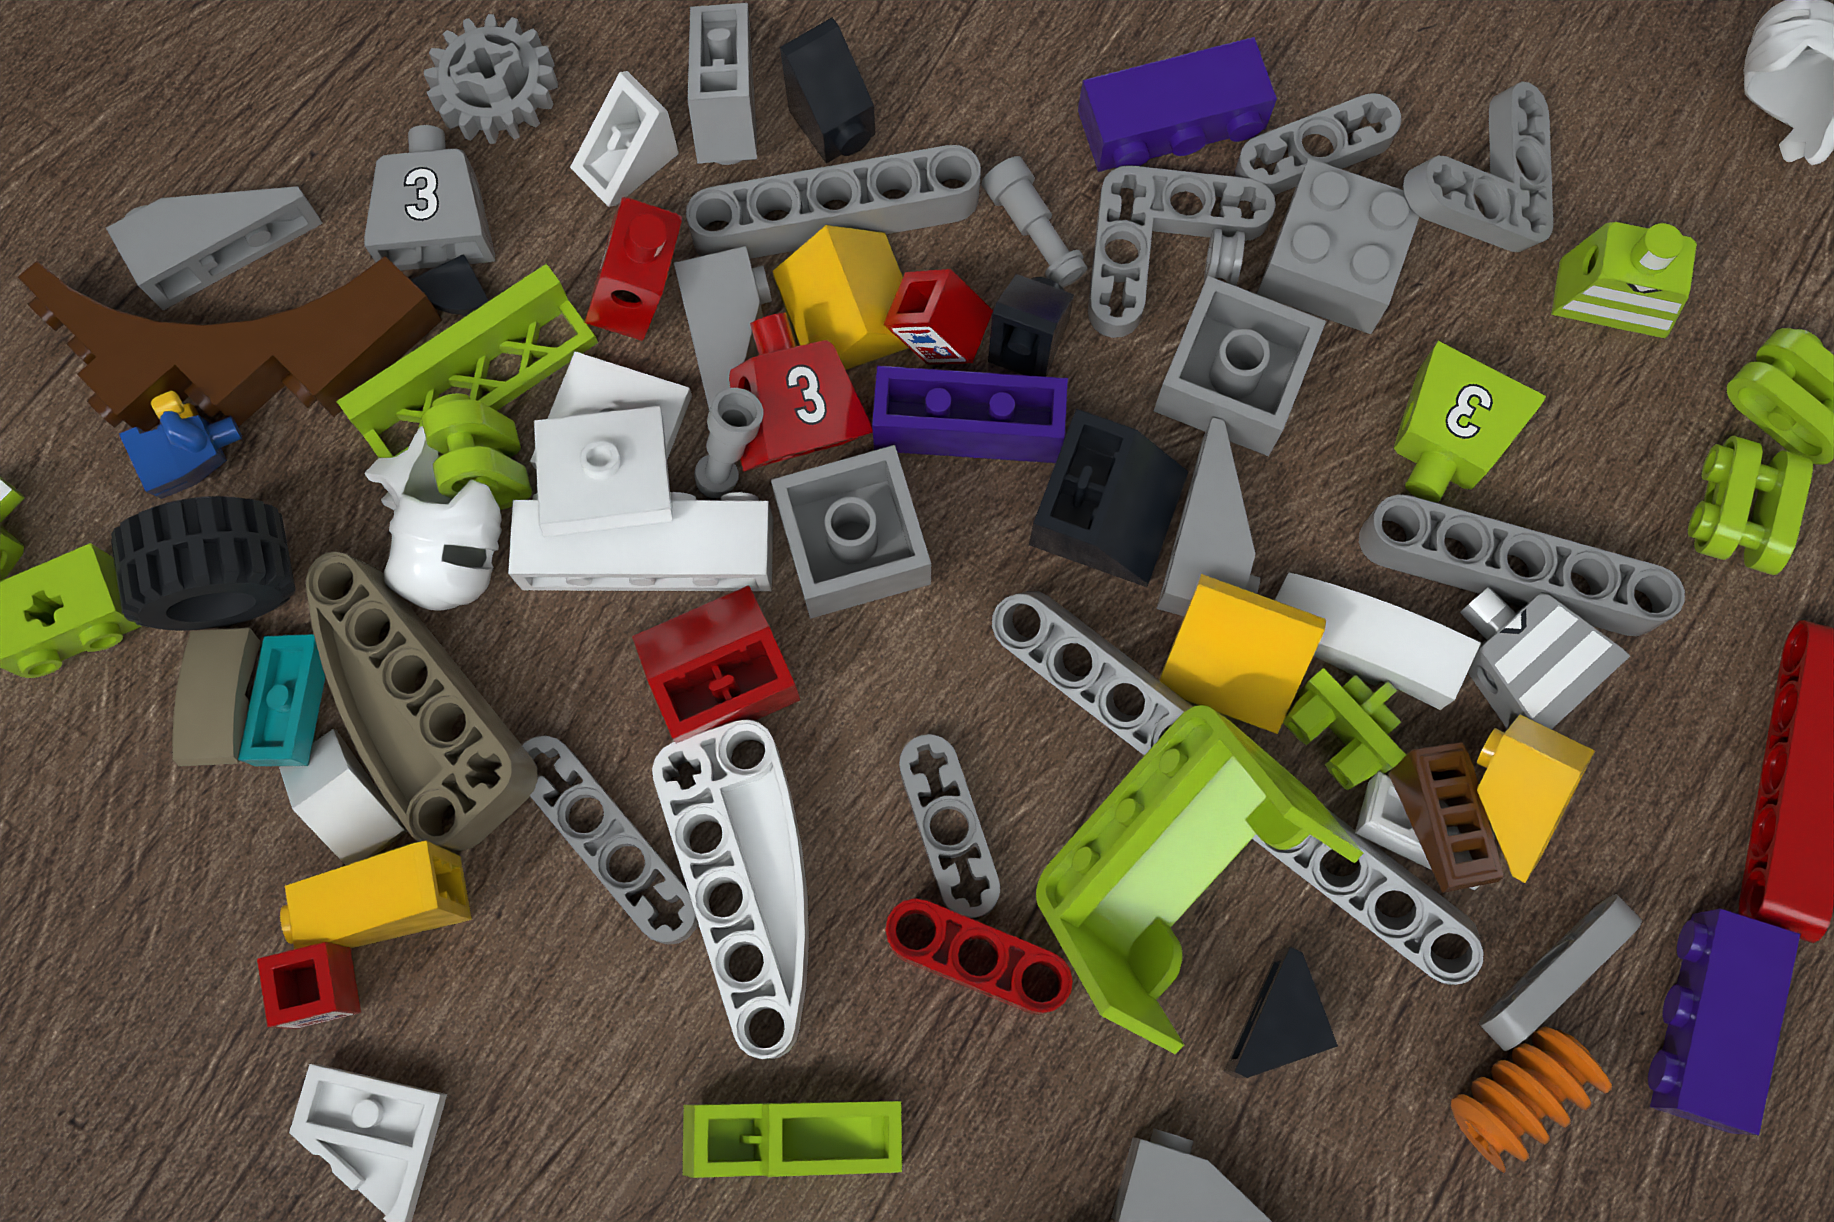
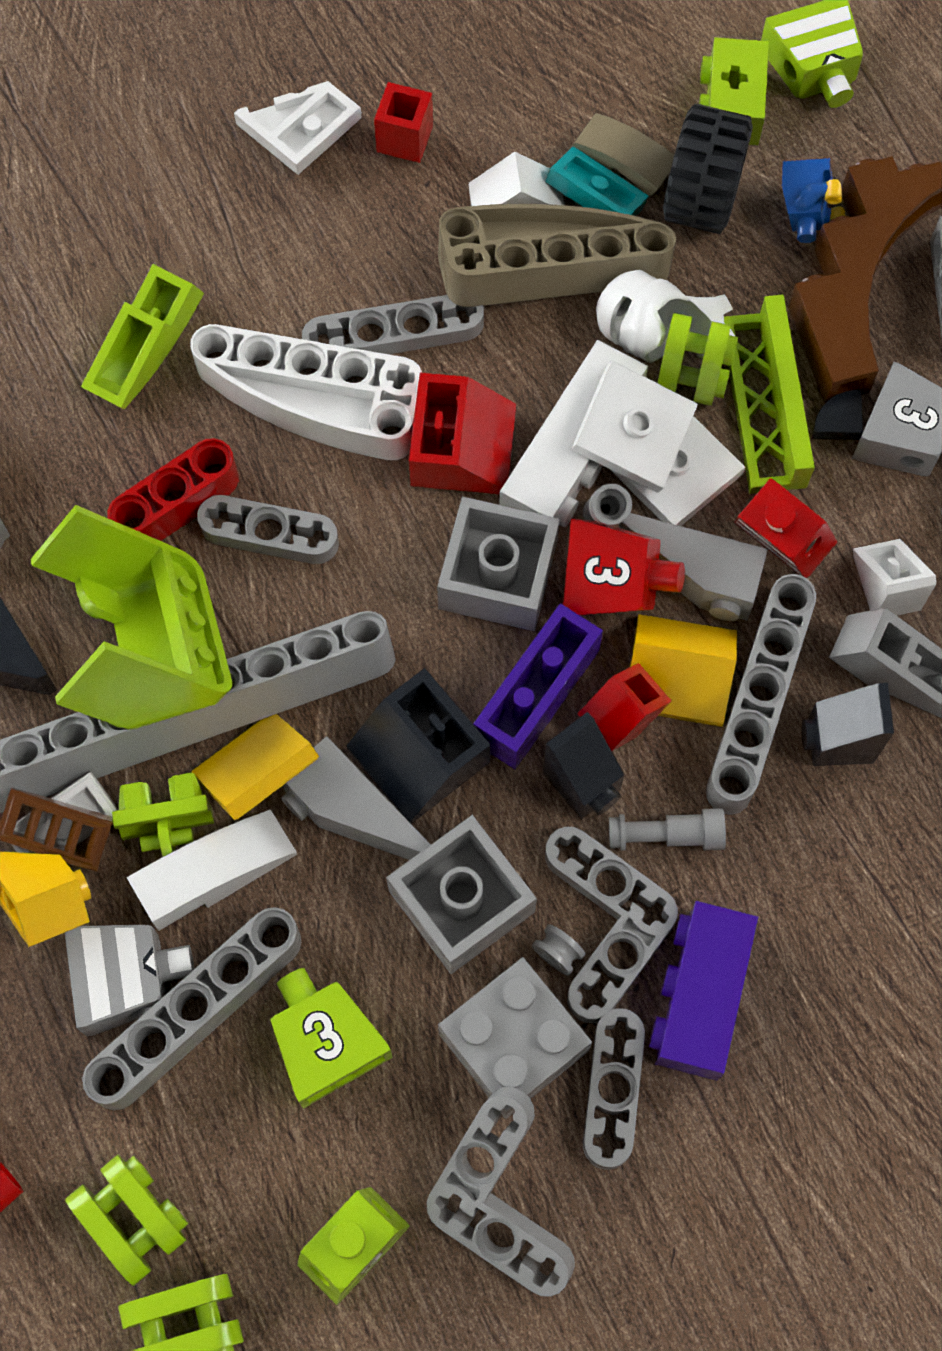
camera: 120 degrees right, 5 degrees down
(378, 898) = (430, 181): yellow slope -> none

